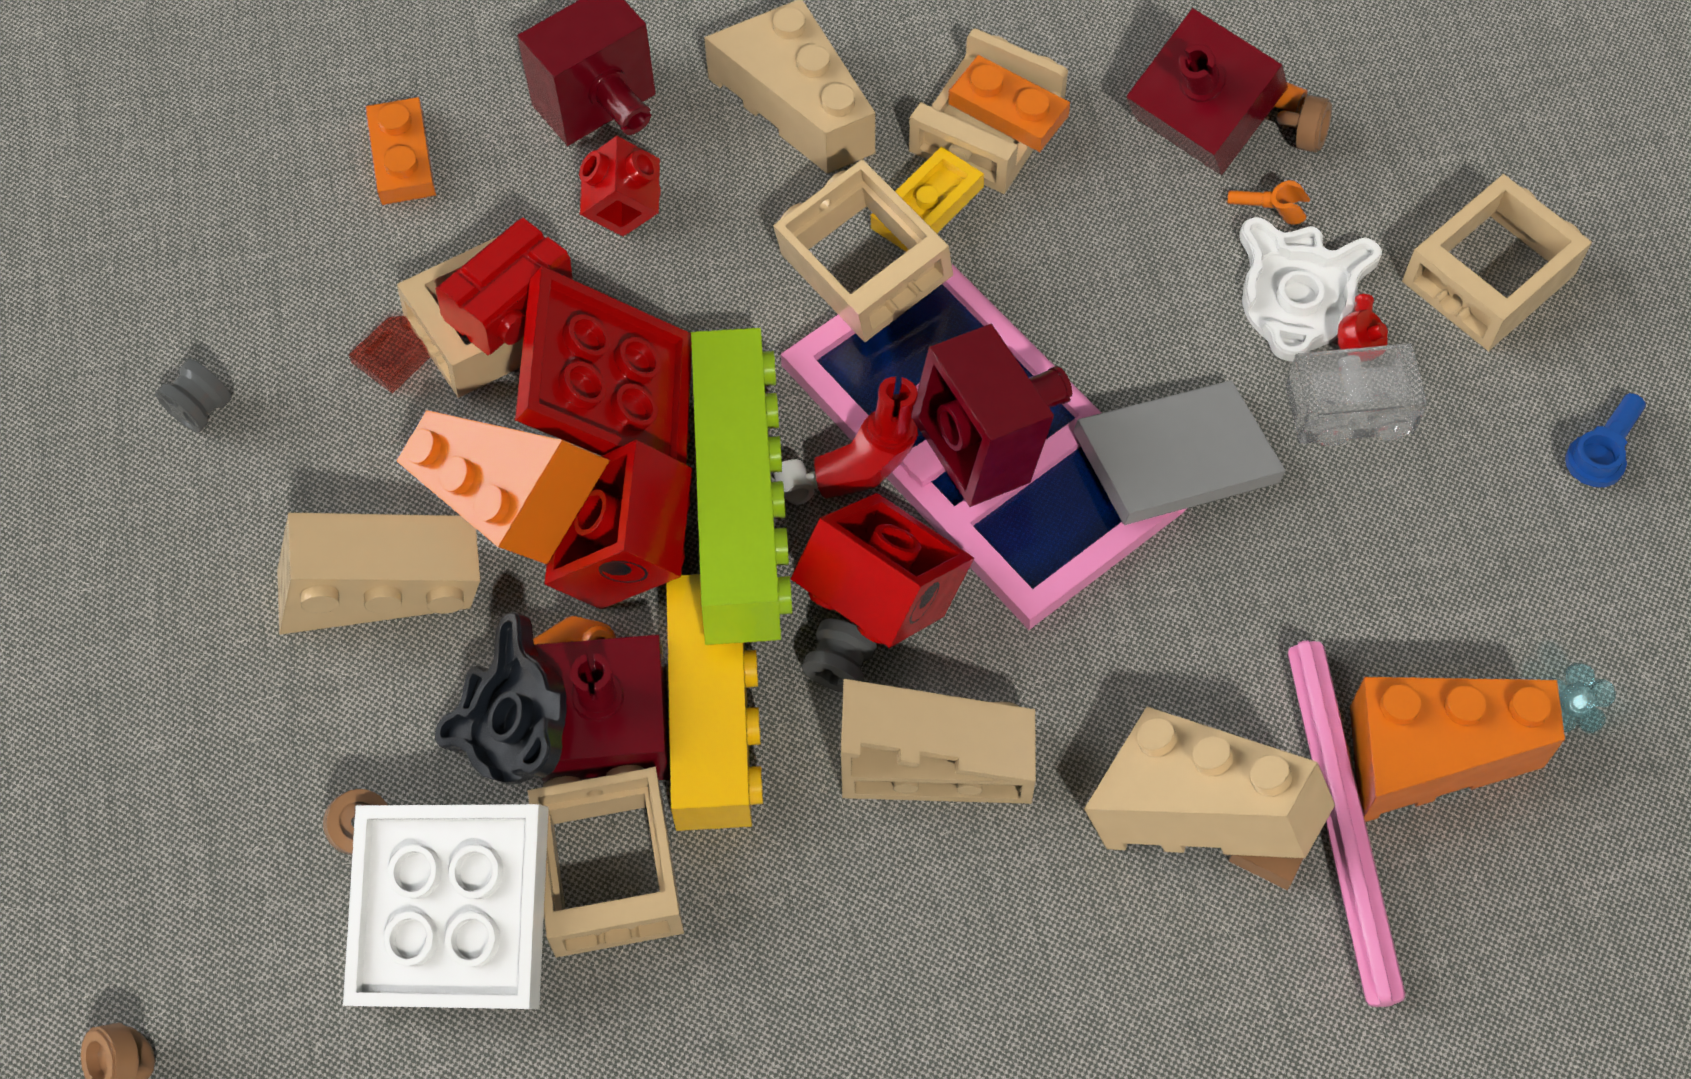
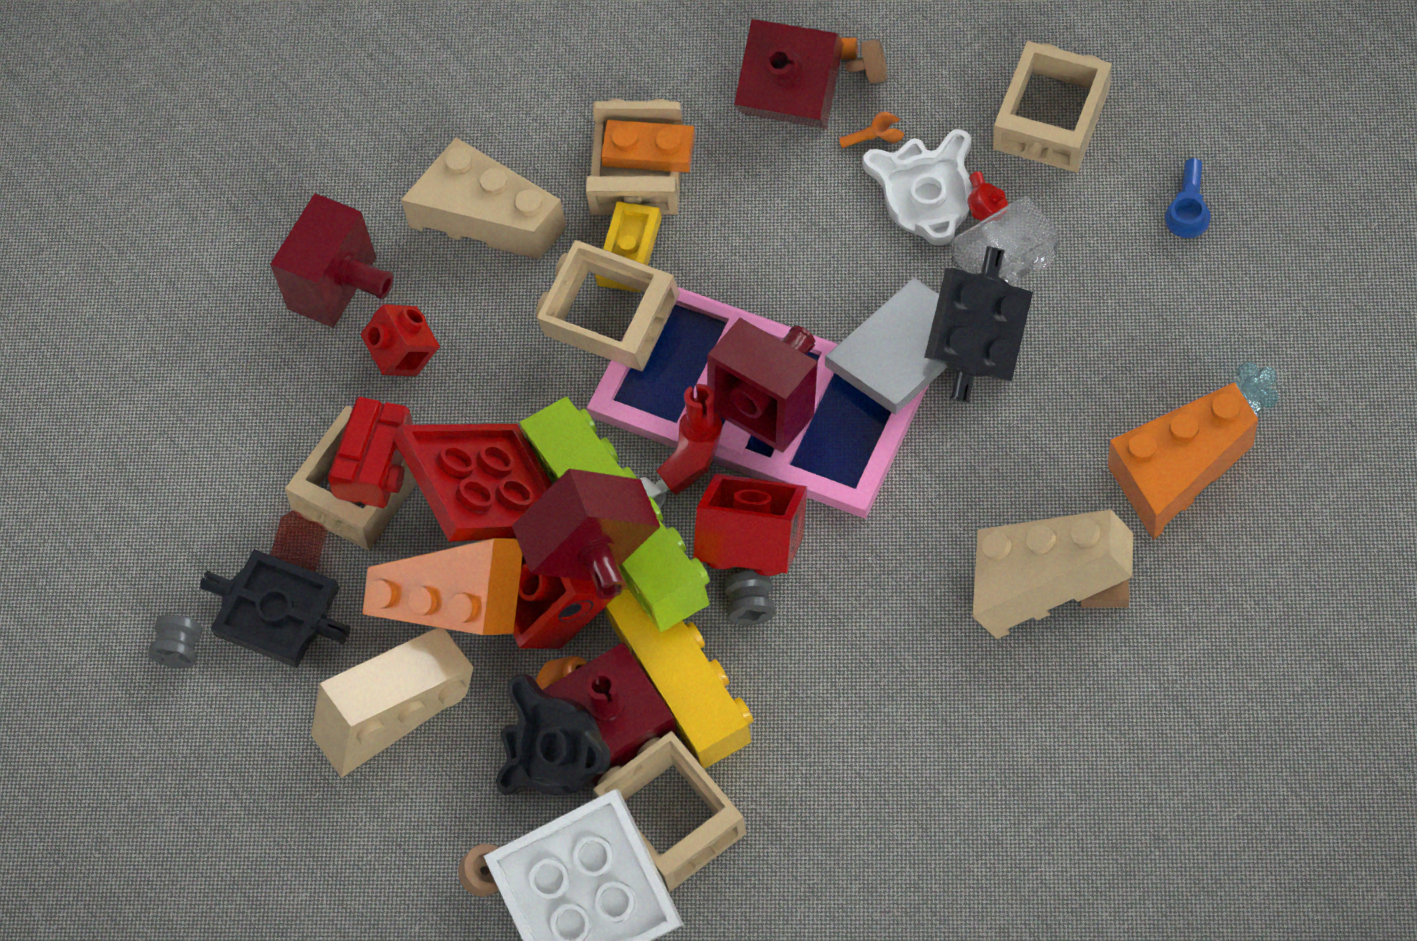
camera: 20 degrees left, 0 degrees up
(319, 411) = (275, 608): none -> black plate
(400, 151) = (211, 389): orange plate -> none
(671, 479) = (587, 528): none -> dark red brick
(934, 746) = (849, 626): tan wedge -> none
(1276, 466) = (978, 324): none -> black plate
(1347, 827) = (1146, 545): bright pink axle -> none

